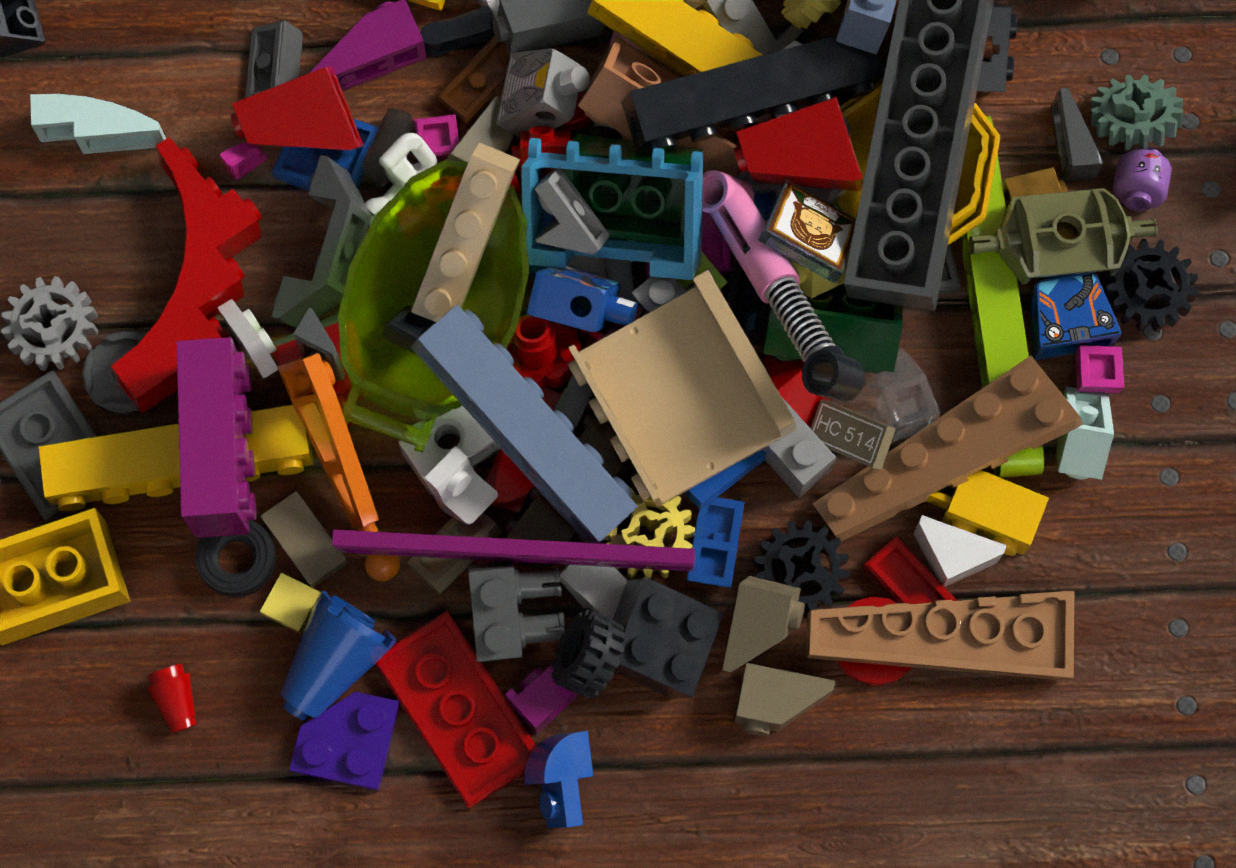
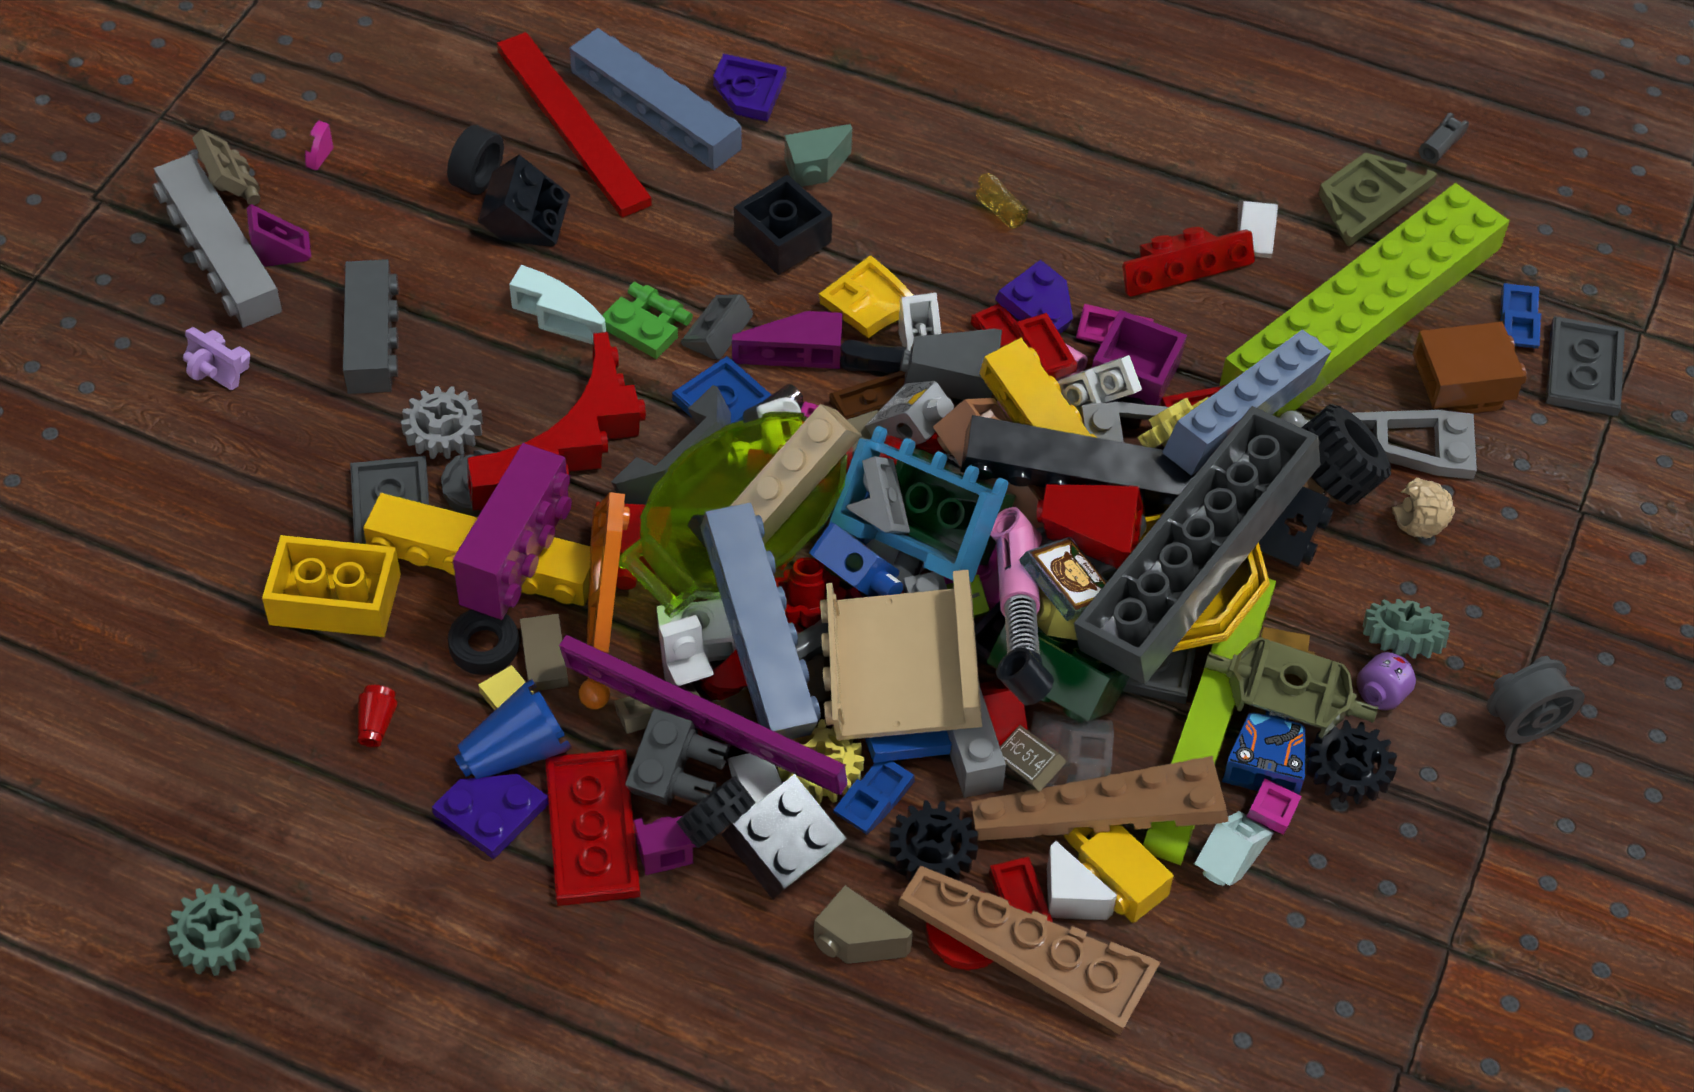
camera: 25 degrees right, 20 degrees down
(191, 105) = (641, 328): none -> bright green plate
(242, 159) = (655, 374): dark pink tile -> none
(250, 337) = (586, 487): white plate -> none
(299, 114) = (714, 353): red slope -> none
(314, 339) = (628, 483): dark grey slope -> none
(557, 767) = (645, 897): blue brick -> none
(761, 618) = (873, 859): dark tan slope -> none
(1075, 146) = (1341, 634): dark grey slope -> none

